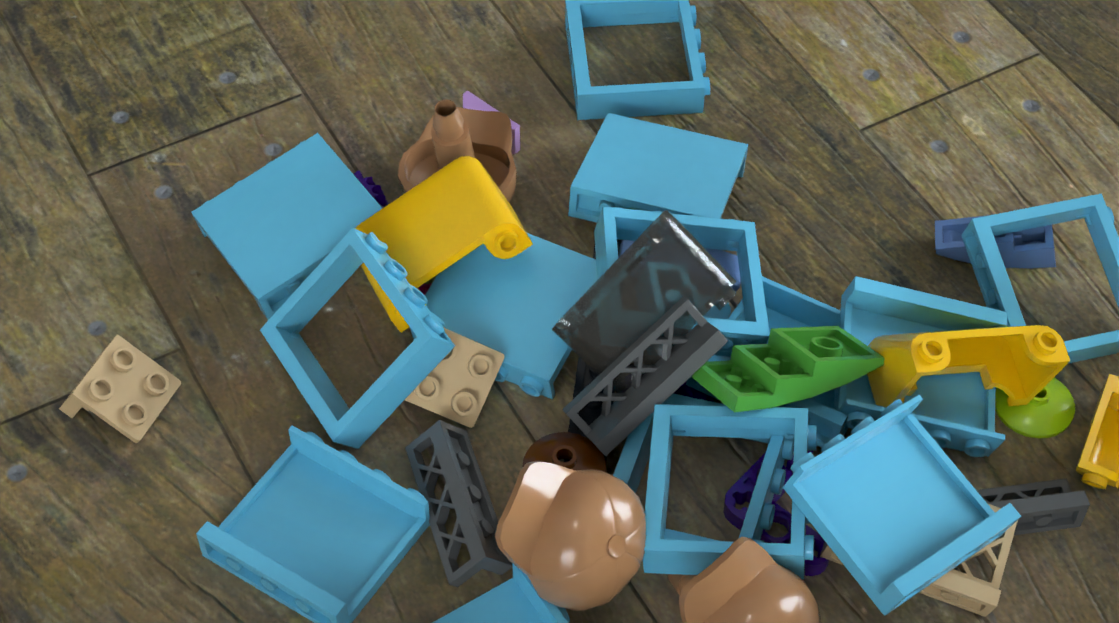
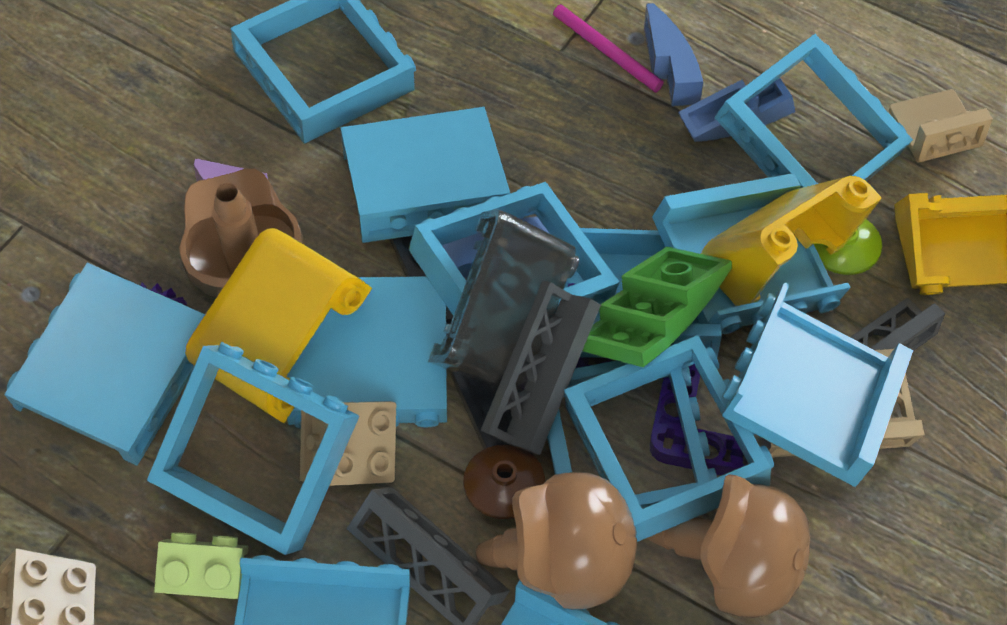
camera: 30 degrees left, 5 degrees up
(258, 420) = (199, 567): none -> yellowish green bracket
(905, 144) = (608, 48): none -> dark pink bar
(957, 172) = (672, 57): none -> medium blue slope

